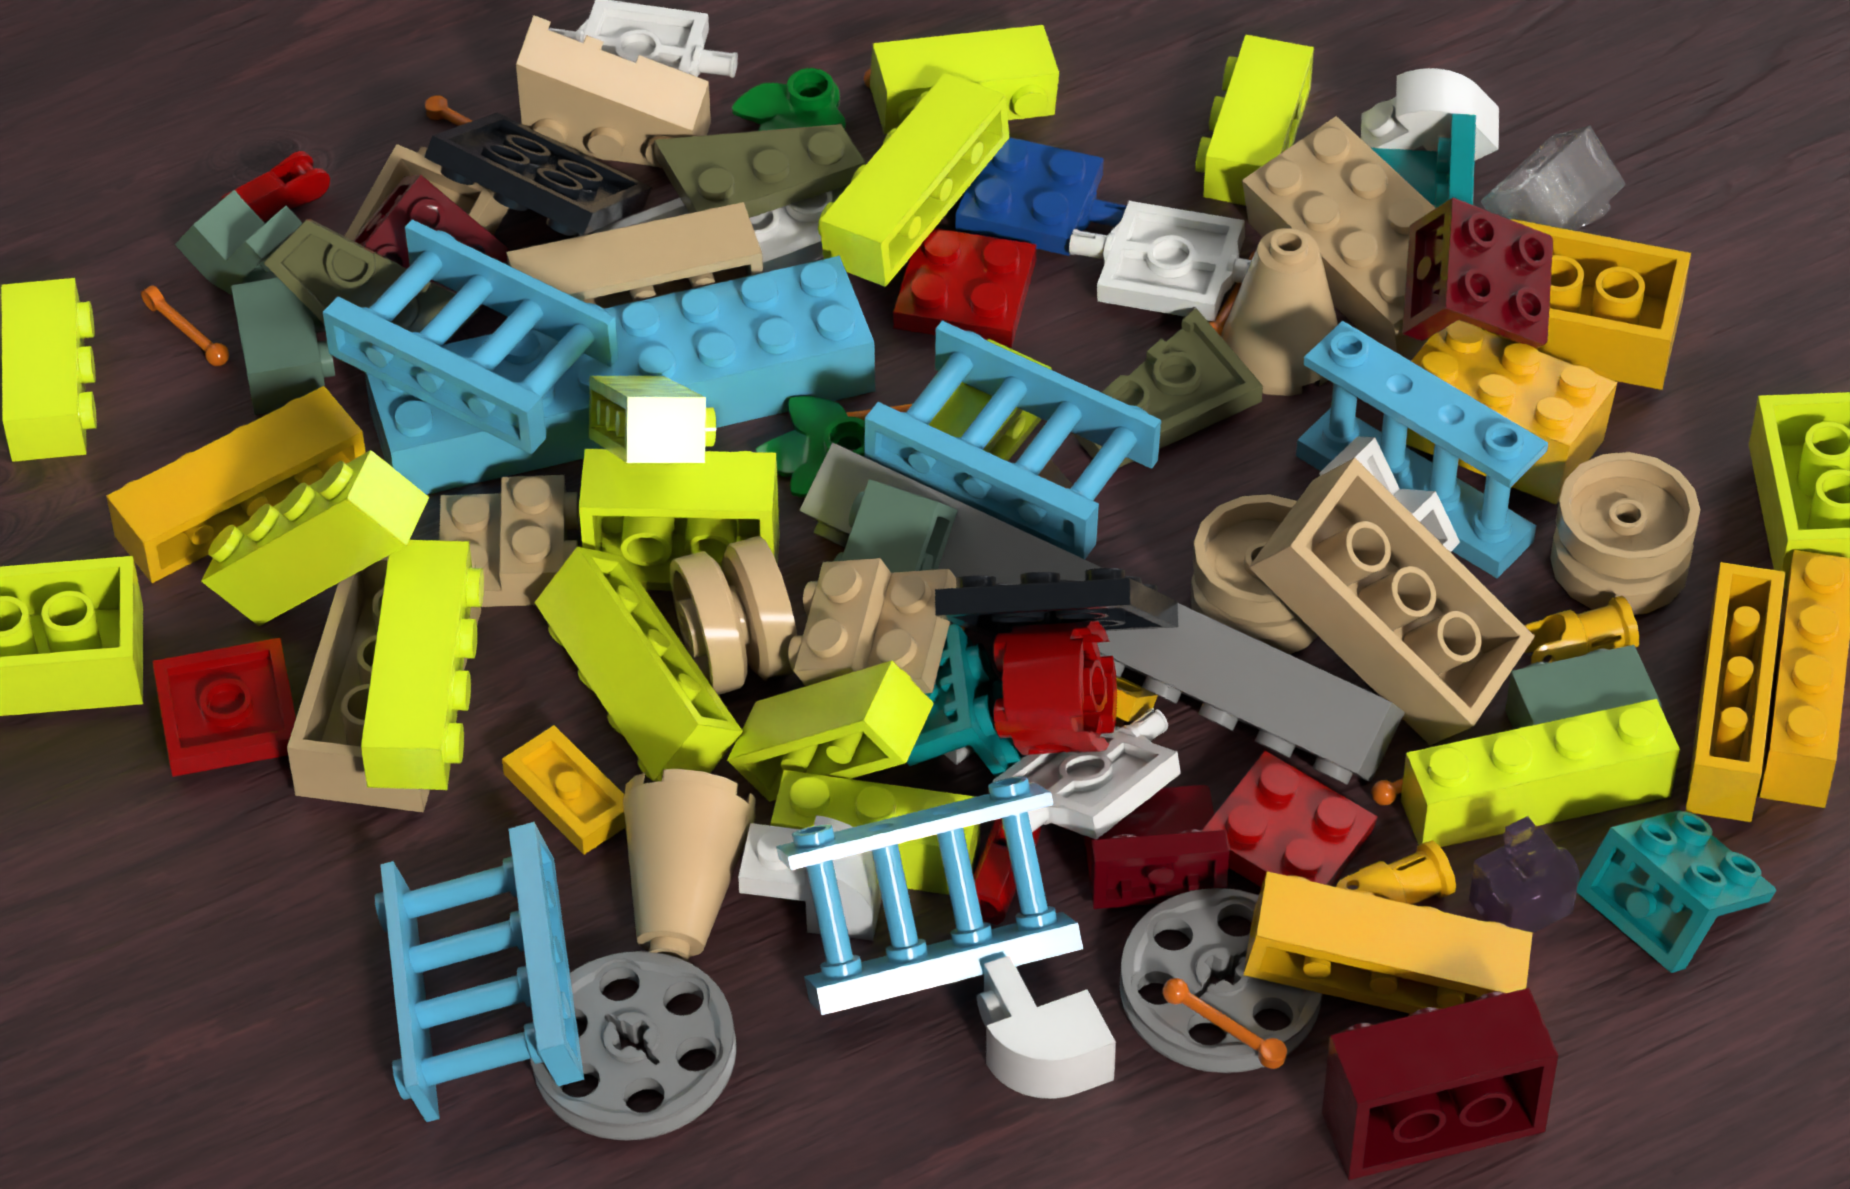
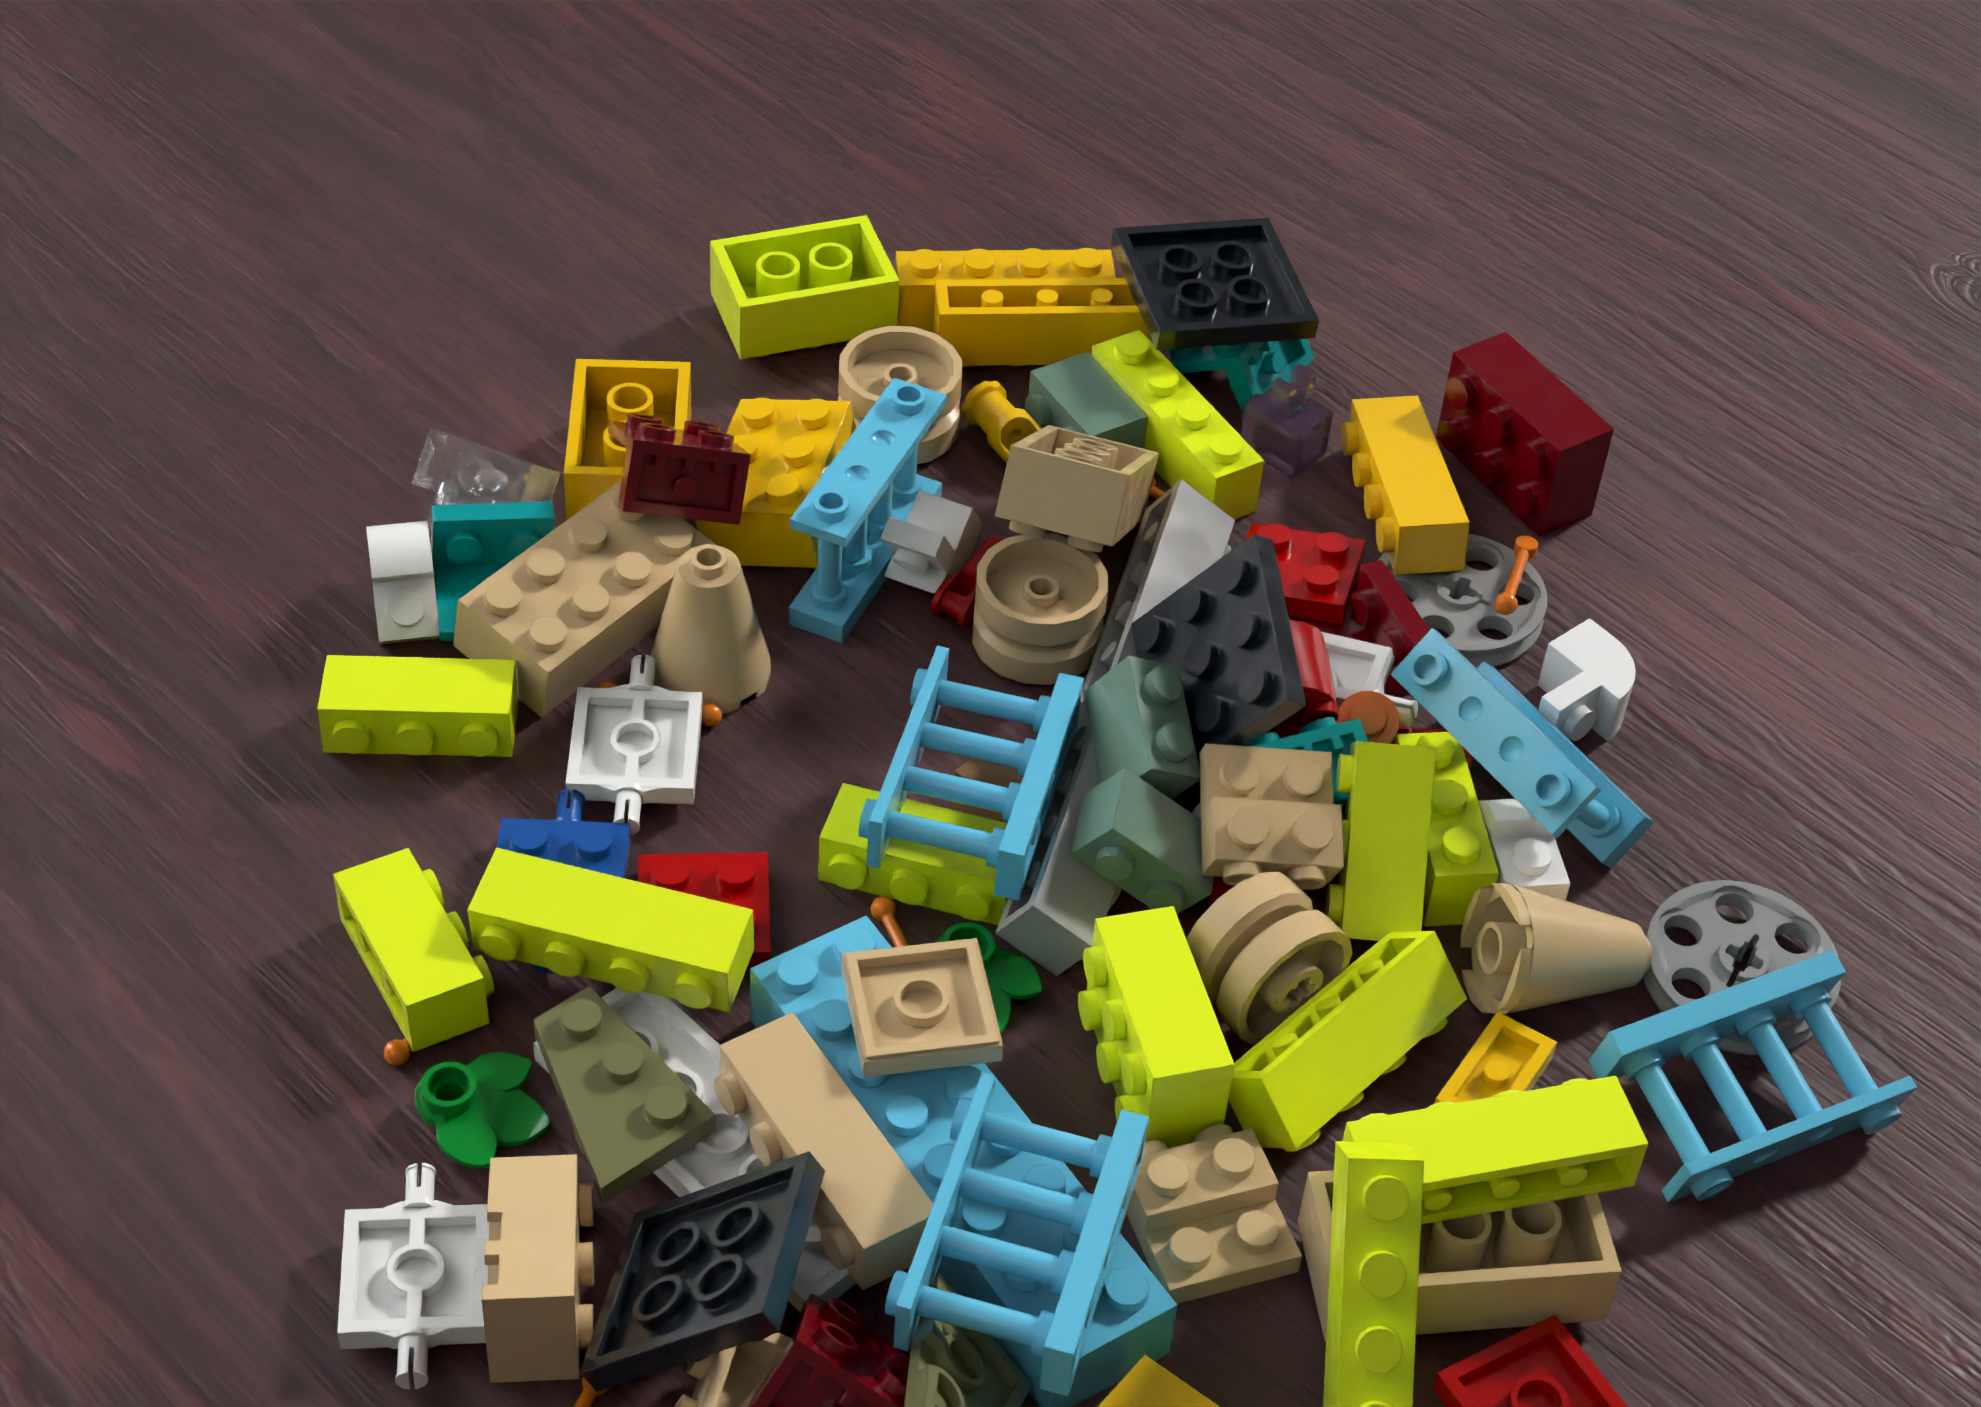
camera: 110 degrees left, 5 degrees down
(650, 419) = (1120, 1006): brick -> none
(729, 326) = (921, 1007): none -> tan plate
(1000, 765) = (1376, 715): none -> orange plate
(1011, 548) = (1143, 725): none -> sand green brick
(1186, 383) = (809, 720): olive wing -> none
(1407, 879) = (1322, 504): yellow piece -> none
(1717, 807) = (1213, 283): none -> black plate

